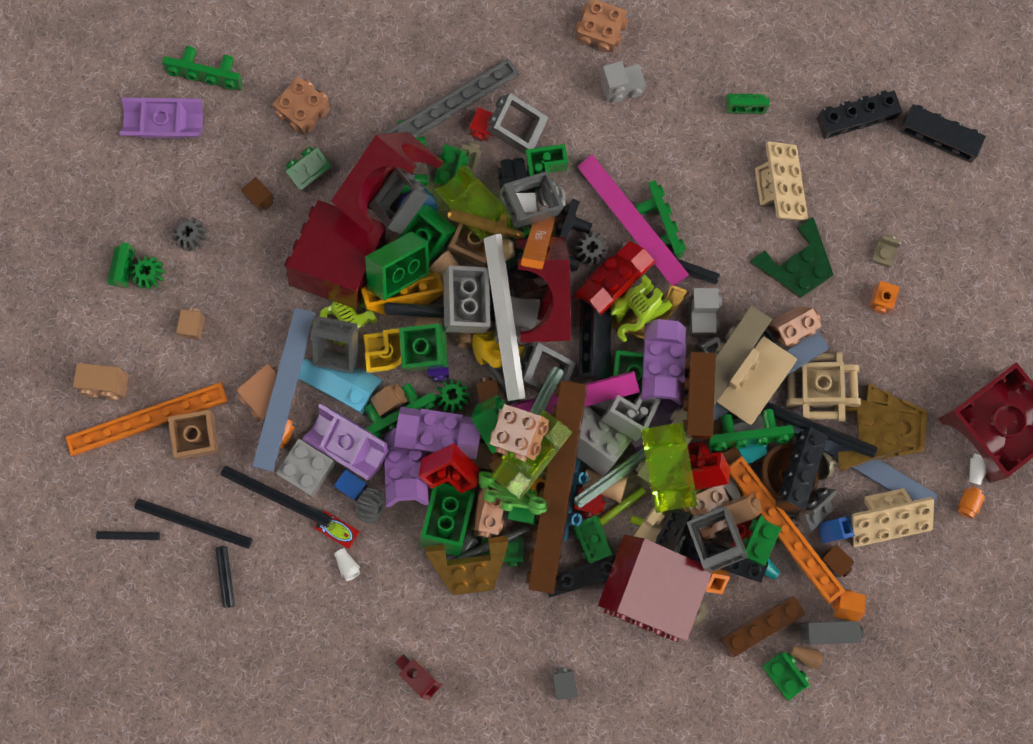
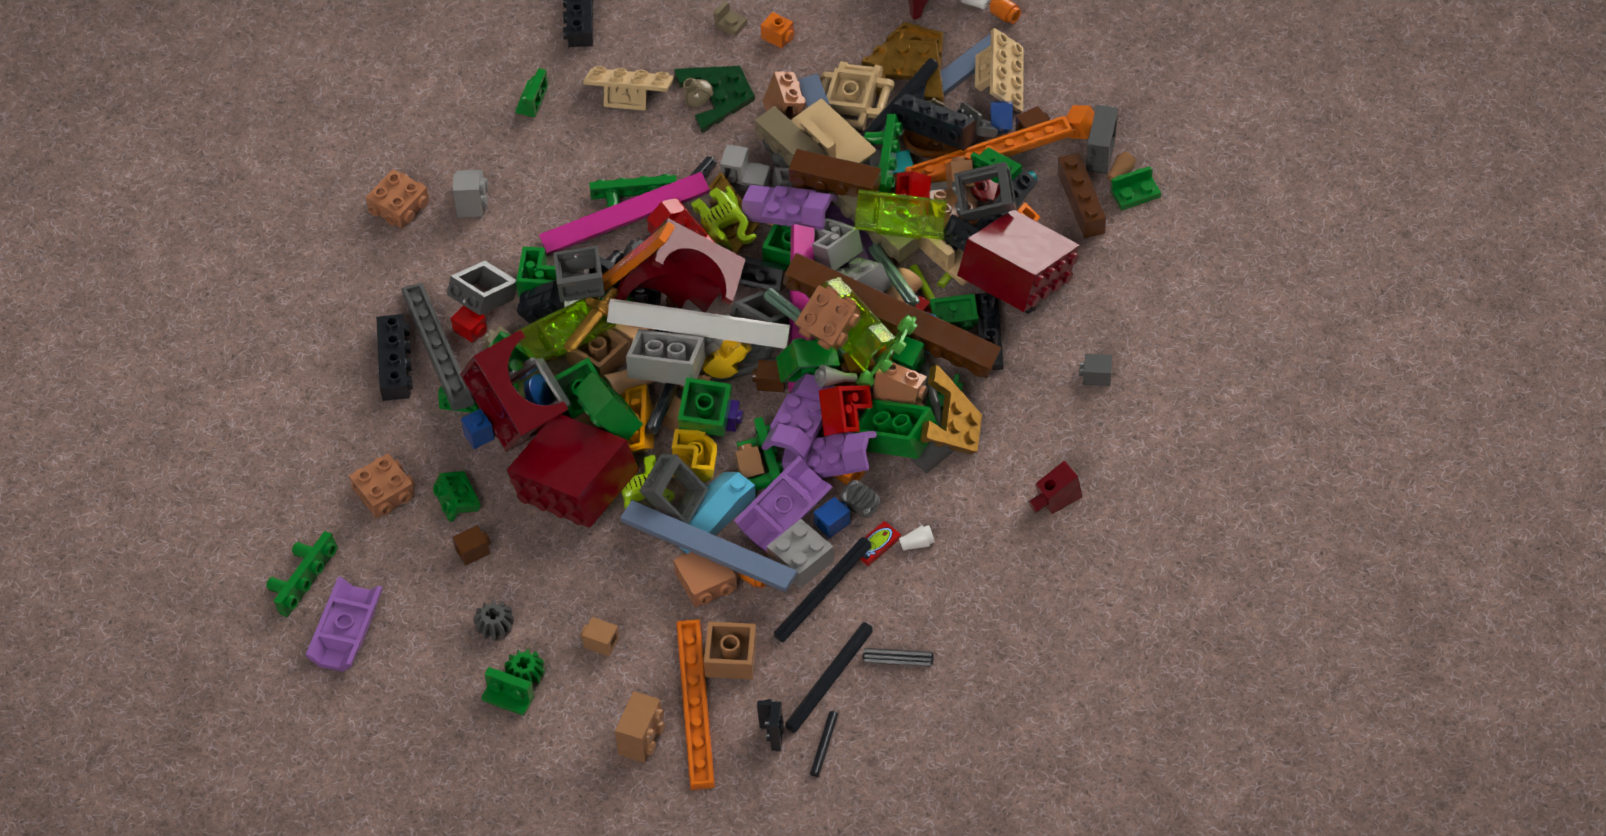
camera: 70 degrees left, 25 degrees down
(131, 490) = (771, 718): none -> black bracket
(433, 73) = (393, 357): none -> black brick
(460, 394) = (761, 405): green gear -> none
(475, 447) = (828, 376): none -> light grey cone
(790, 245) = (696, 92): none -> dark tan piece

